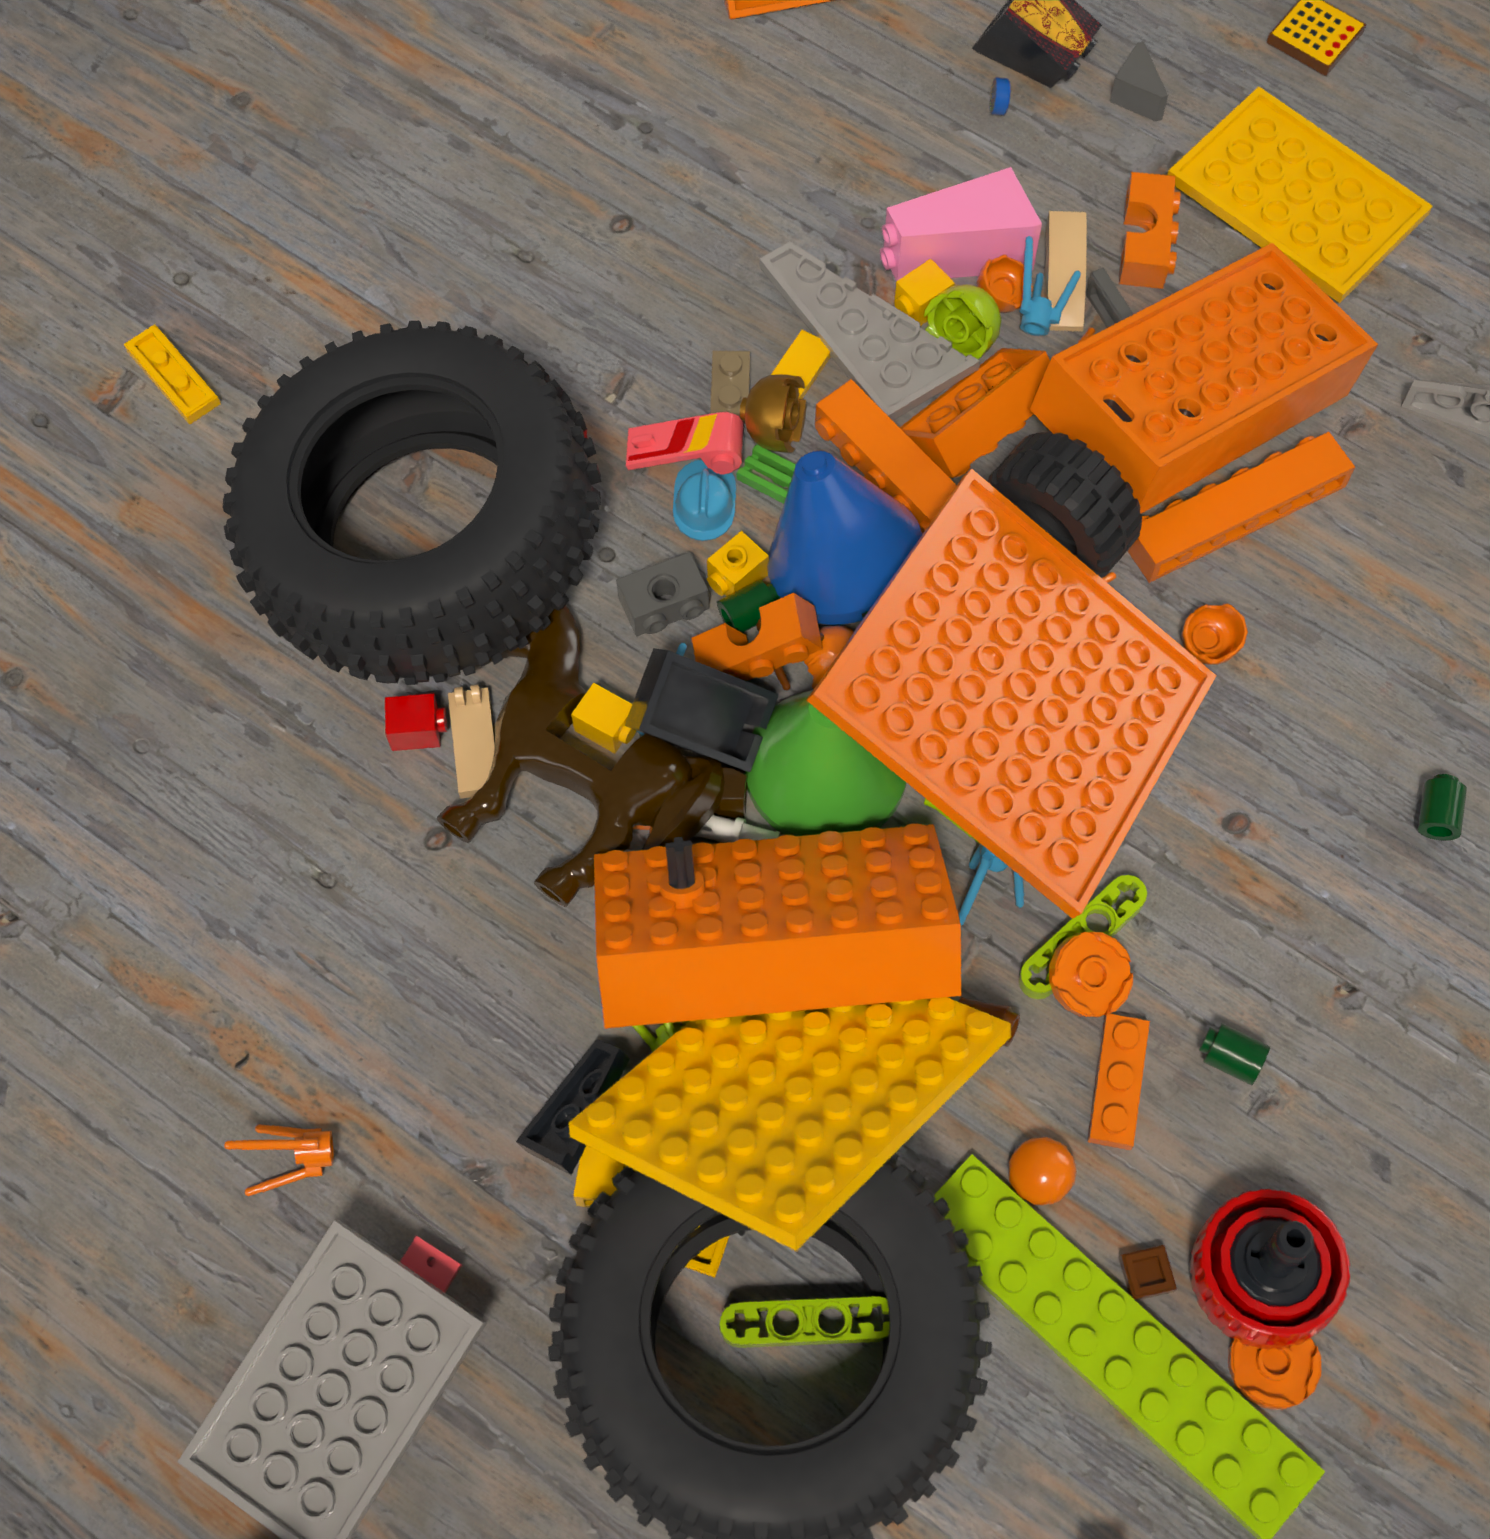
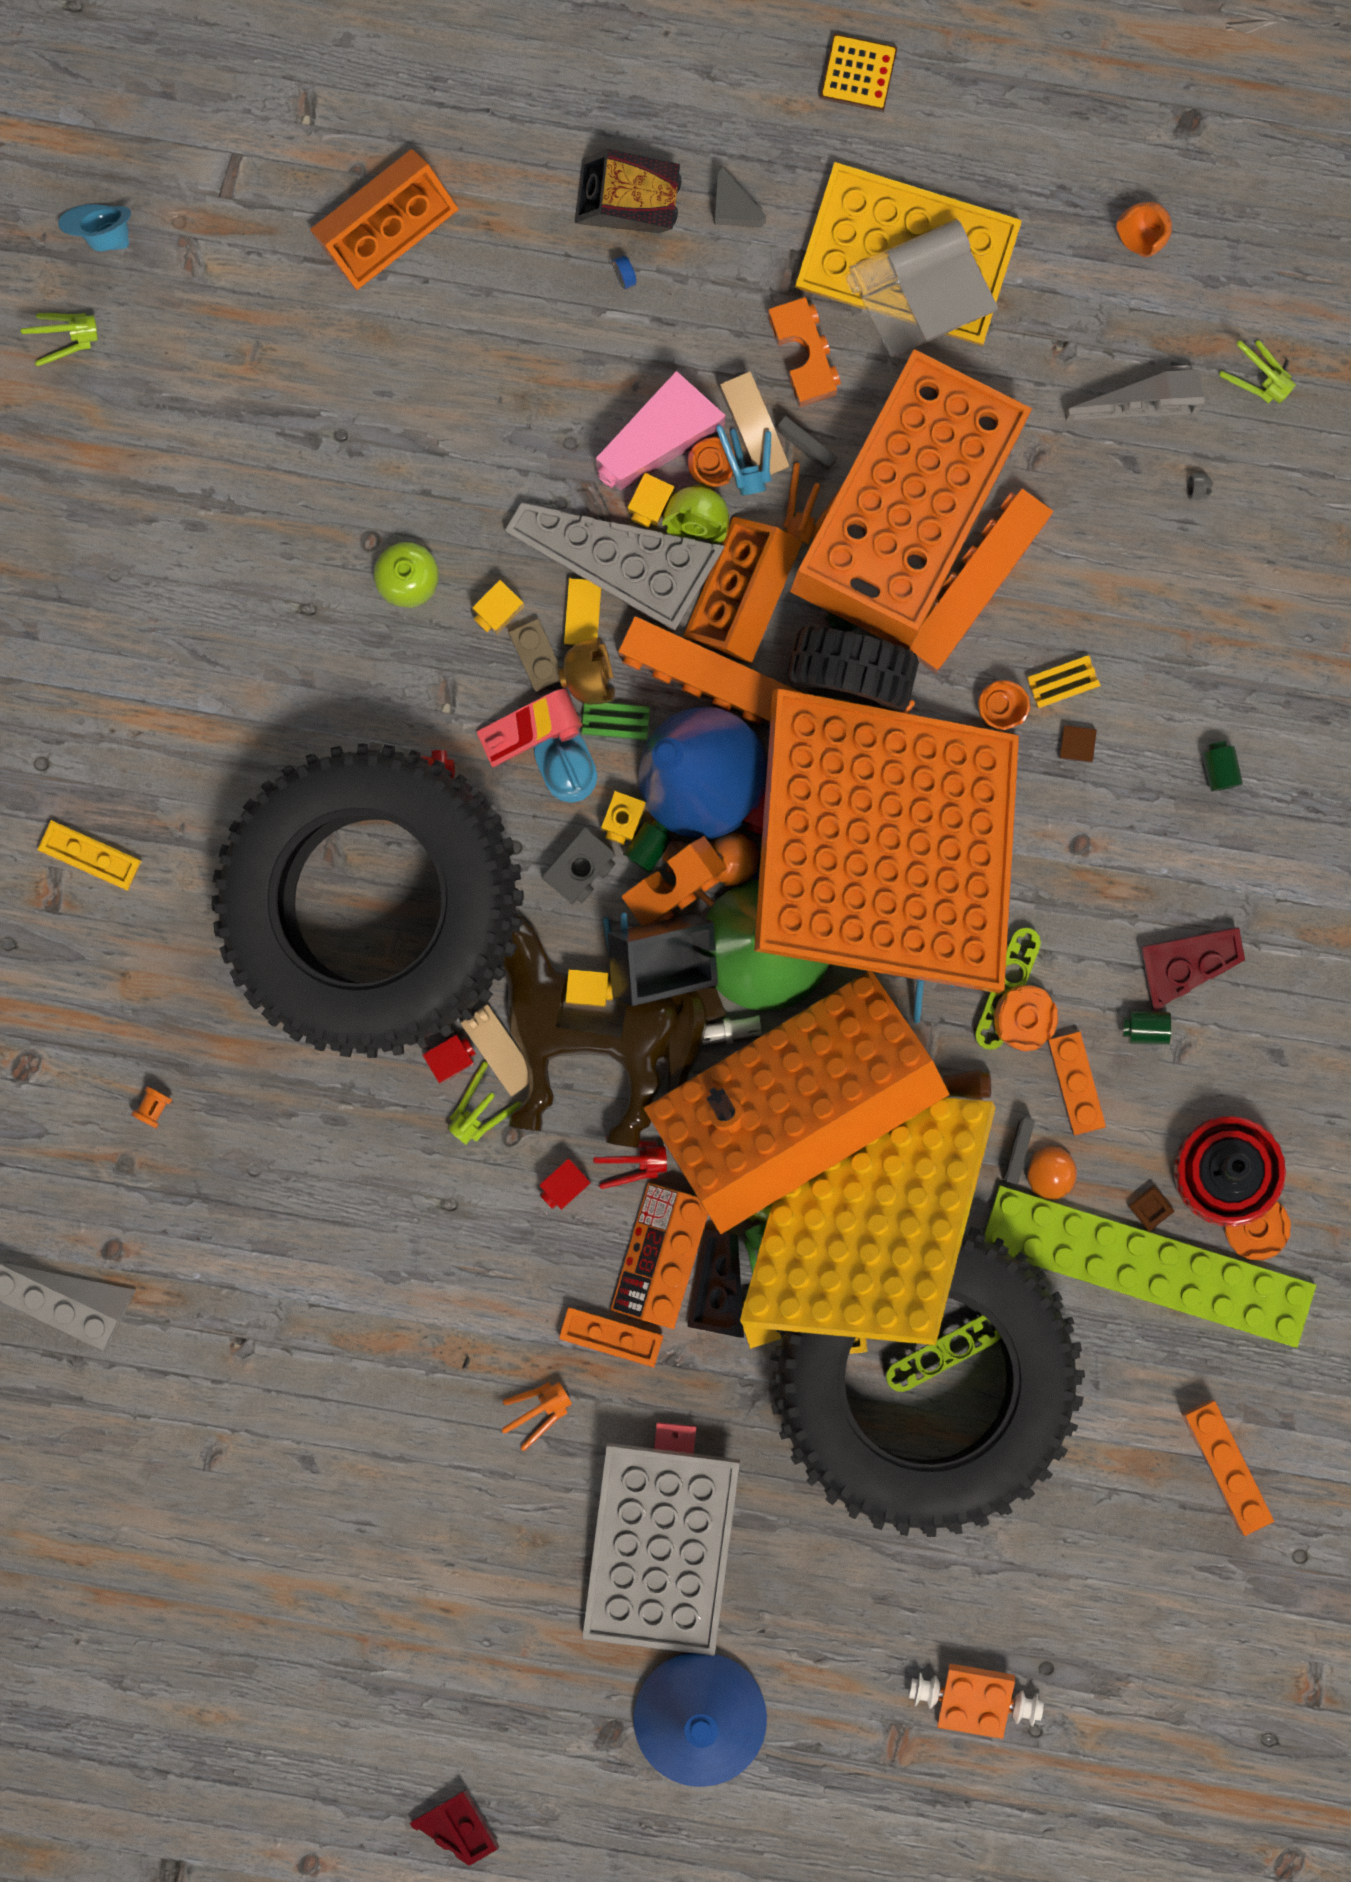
camera: 30 degrees left, 20 degrees up
(74, 628) = (151, 1107): none -> orange bush
(392, 798) = (466, 1125): none -> lime plant
(420, 1109) = (611, 1337): none -> orange plate
(462, 912) = (563, 1185): none -> red brick
(528, 1047) = (660, 1256): none -> orange slope
(576, 929) = (651, 1159): none -> red plant
(638, 259) = (406, 575): none -> lime cylinder
(713, 323) = (497, 608): none -> yellow brick
(1013, 1122) = (1018, 1151): none -> dark grey tile
(1280, 715) = (1078, 744): none -> reddish brown tile
(1290, 640) = (1089, 672): none -> yellow tile
(1304, 210) = (922, 288): none -> light grey door
(1316, 1003) = (1187, 962): none -> dark red wing

